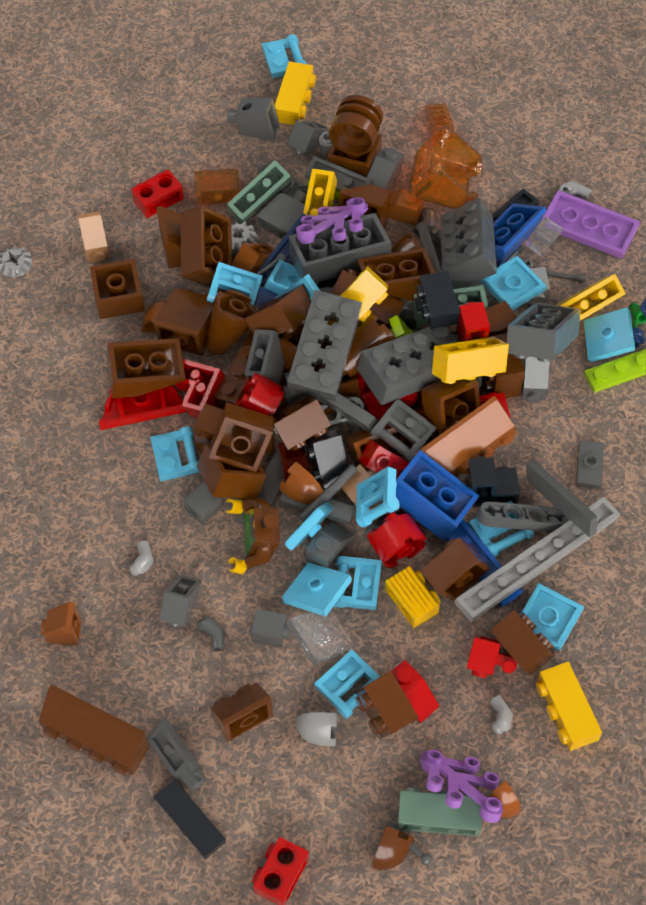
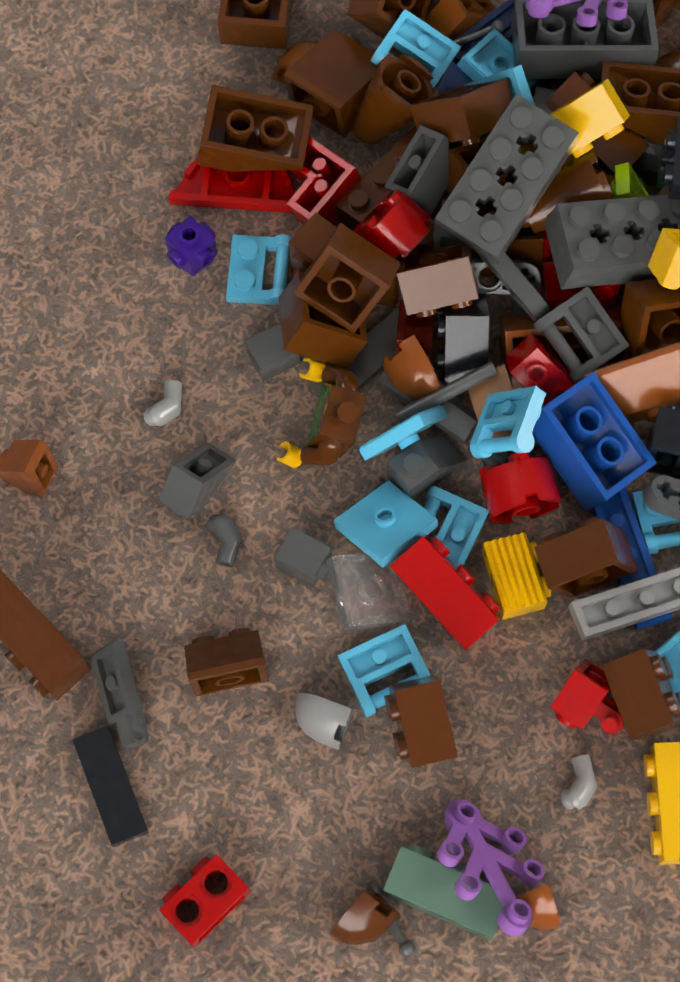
camera: 20 degrees right, 10 degrees up
(125, 451) = (191, 245): none -> dark purple brick
(372, 618) = (447, 590): none -> red brick
(415, 690) = (468, 711): red slope -> none

